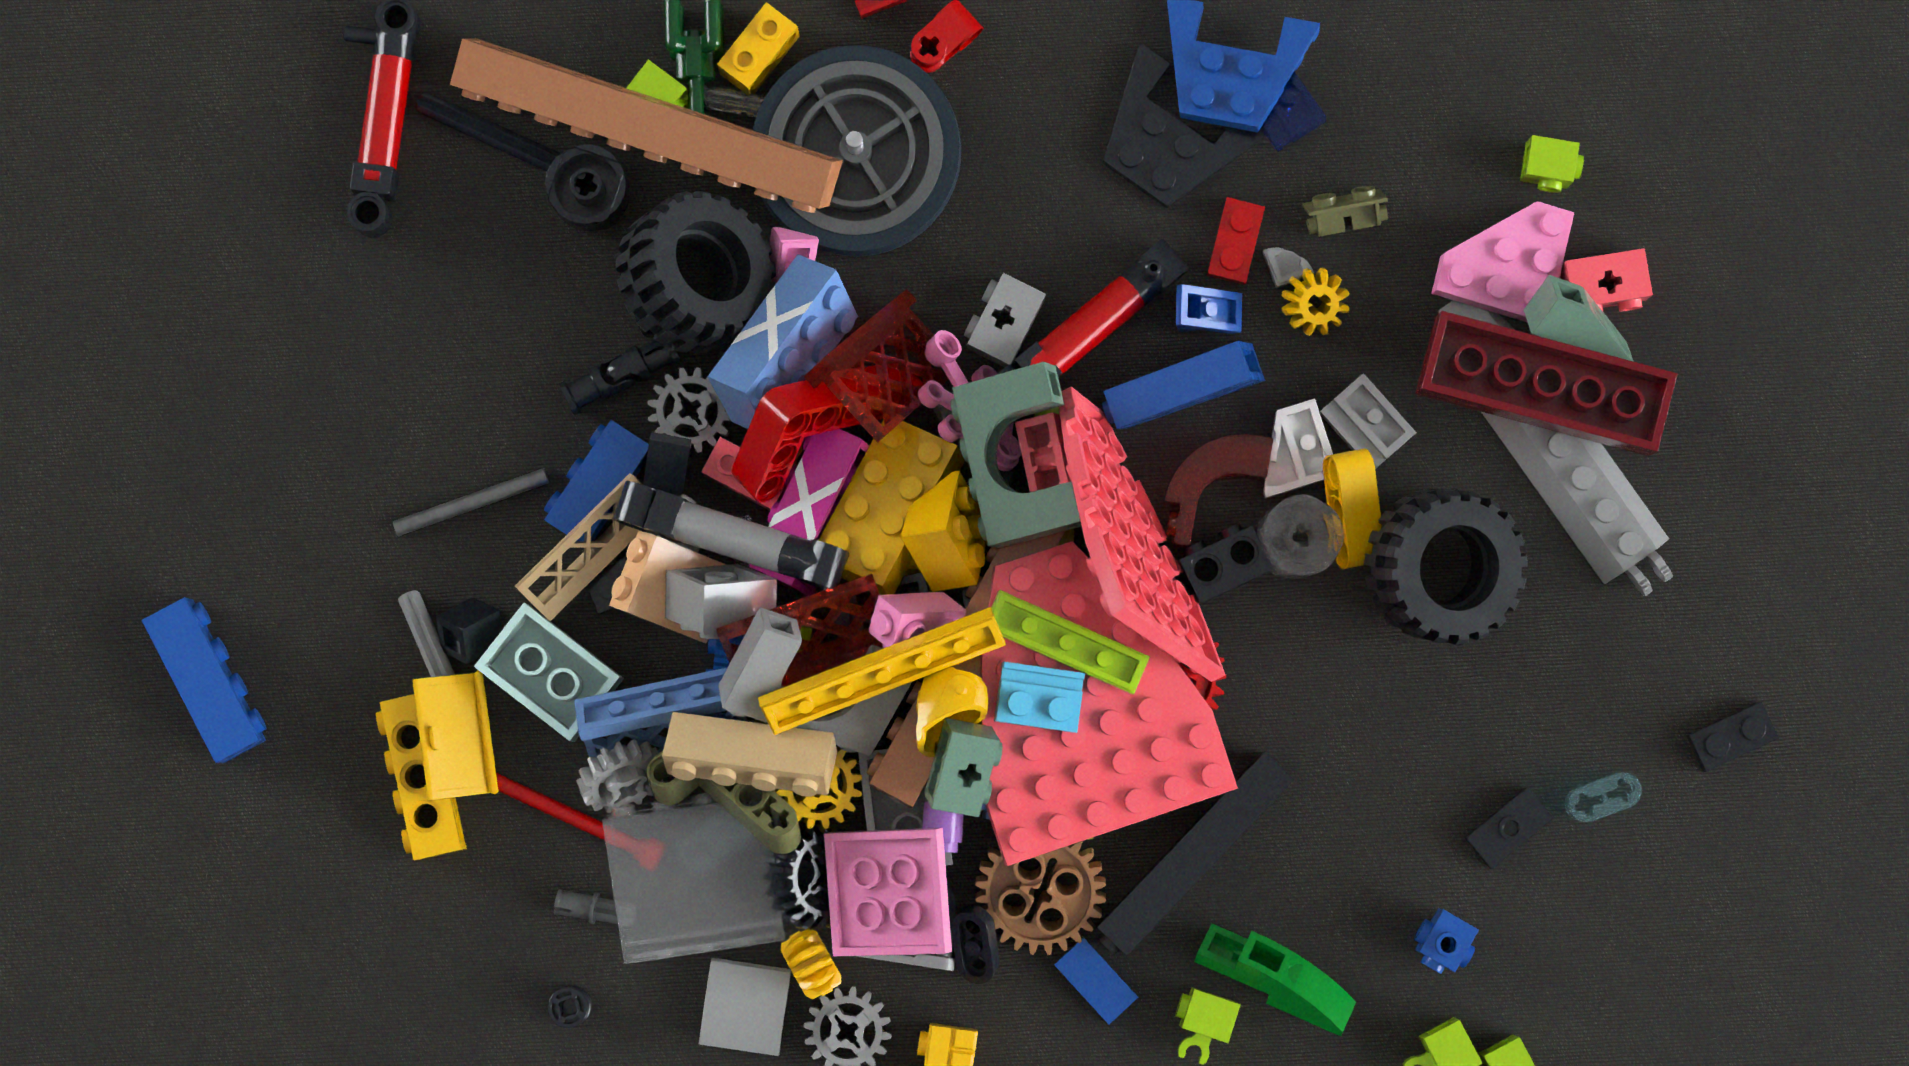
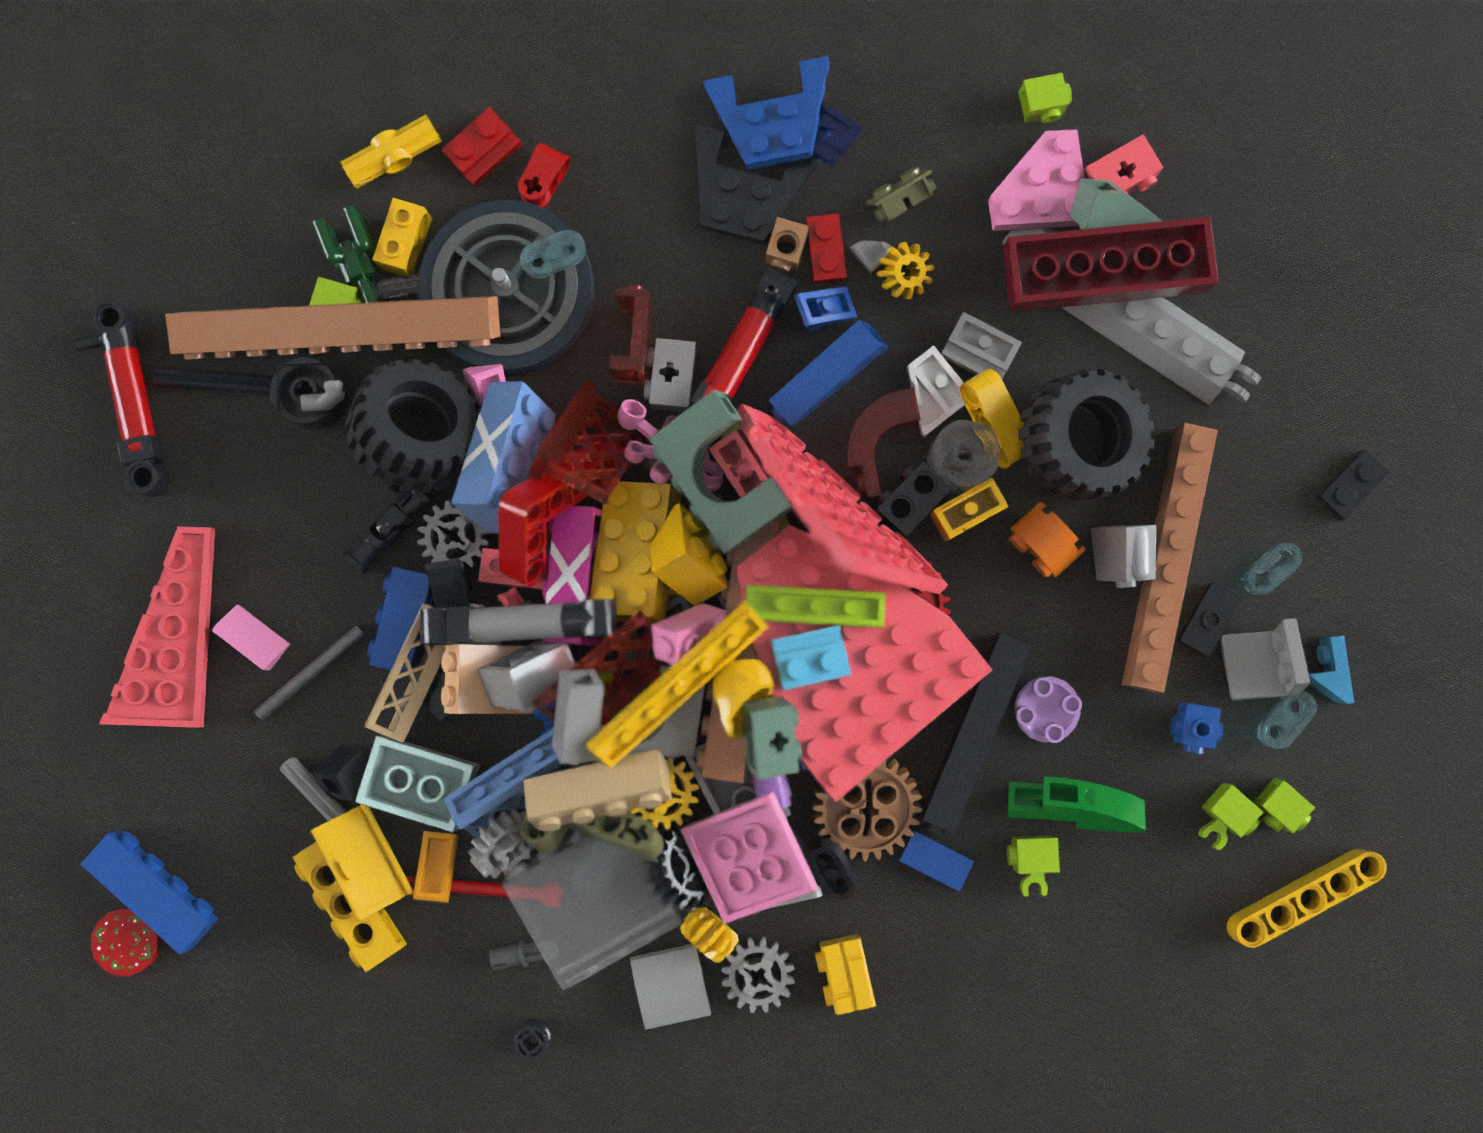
camera: 15 degrees left, 0 degrees up
(154, 726) = (124, 943): none -> red tile
(322, 420) = (169, 651): none -> coral wing
(420, 438) = (251, 637): none -> bright pink slope
(532, 774) = (435, 867): none -> light orange tile
(607, 206) = (323, 401): none -> light grey arm
(729, 504) = (511, 598): none -> coral hand
(922, 133) = (552, 252): none -> clear light blue plate
(968, 297) = (634, 368): none -> clear red panel
(1193, 204) = (786, 232): none -> medium nougat brick
(1282, 599) = (968, 509): none -> yellow brick
(1286, 858) = (1047, 709): none -> lavender dish
(1356, 668) = (1046, 540): none -> orange brick
(1438, 715) = (1124, 553): none -> light grey torso
(1489, 740) = (1175, 540): none -> nougat brick
(1549, 898) = (1265, 663): none -> light grey bracket
(1552, 974) = (1288, 722): none -> clear light blue plate
(1623, 949) = (1335, 679): none -> dark azure slope

